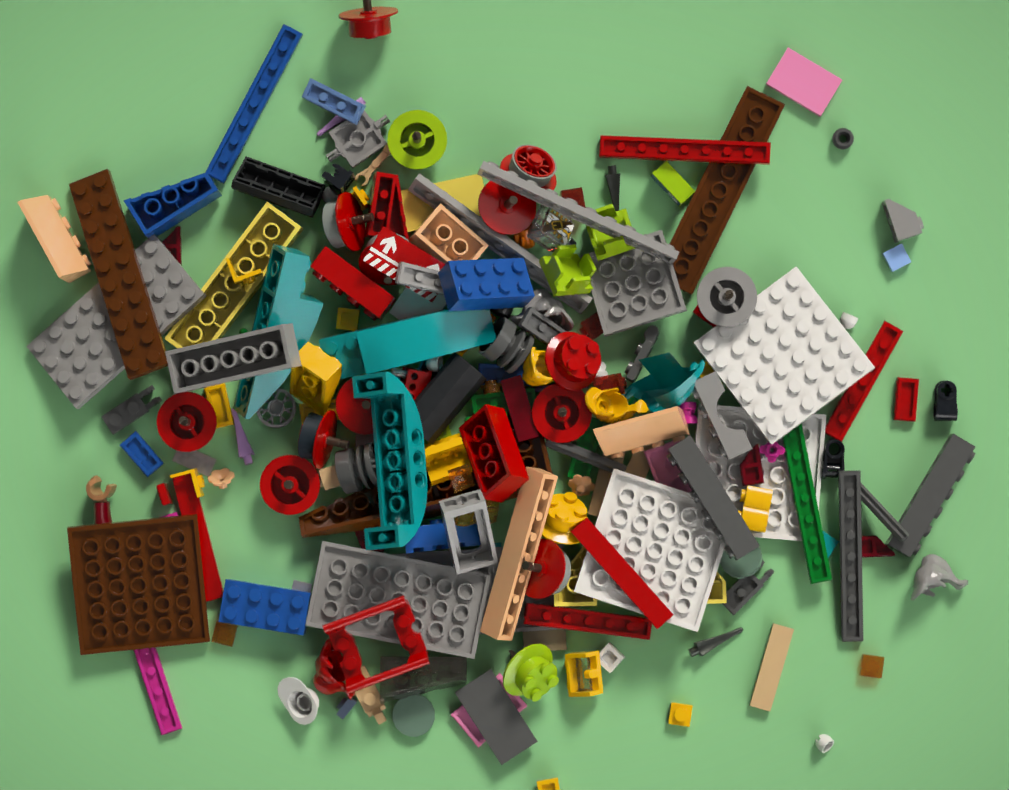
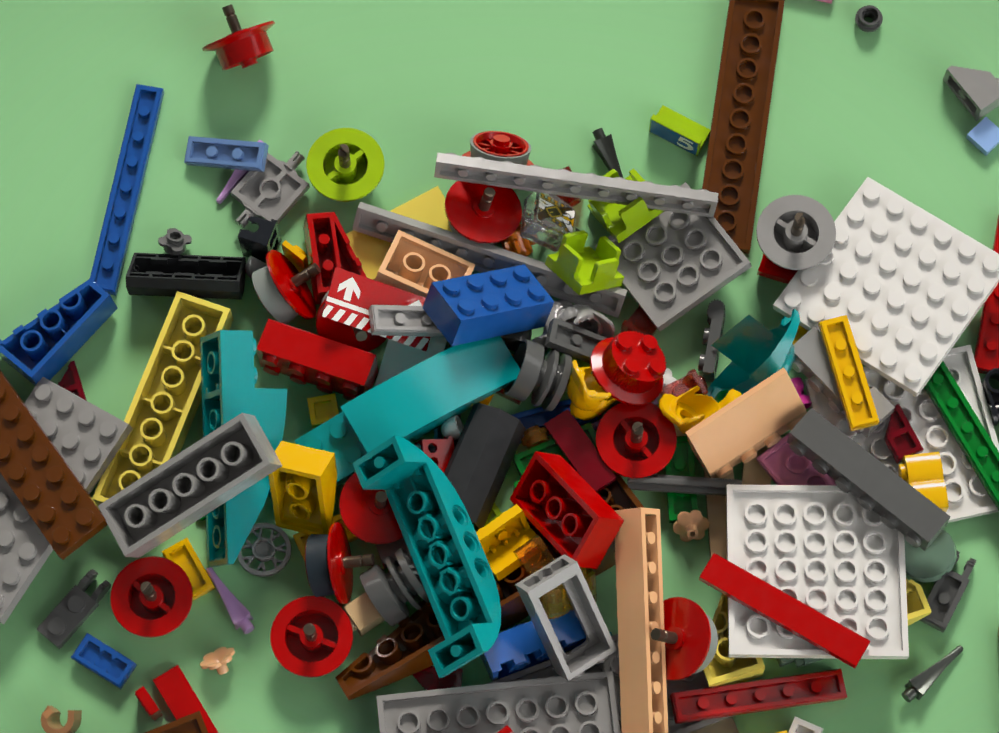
camera: 15 degrees left, 15 degrees down
(195, 460) = (175, 650): flat silver sticker -> none
(198, 480) = (188, 671): yellow bracket -> none
(246, 278) = (177, 388): yellow bracket -> none
(274, 161) = (174, 241): none -> dark grey plate
(373, 166) = (295, 227): tan piece -> none
(563, 516) = (682, 566): yellow piece -> none
(685, 150) = (681, 84): red tile -> none
(727, 414) = (848, 373): none -> yellow tile
(771, 456) = (920, 414): dark pink plate -> none
(848, 321) = (956, 222): white hinge -> none

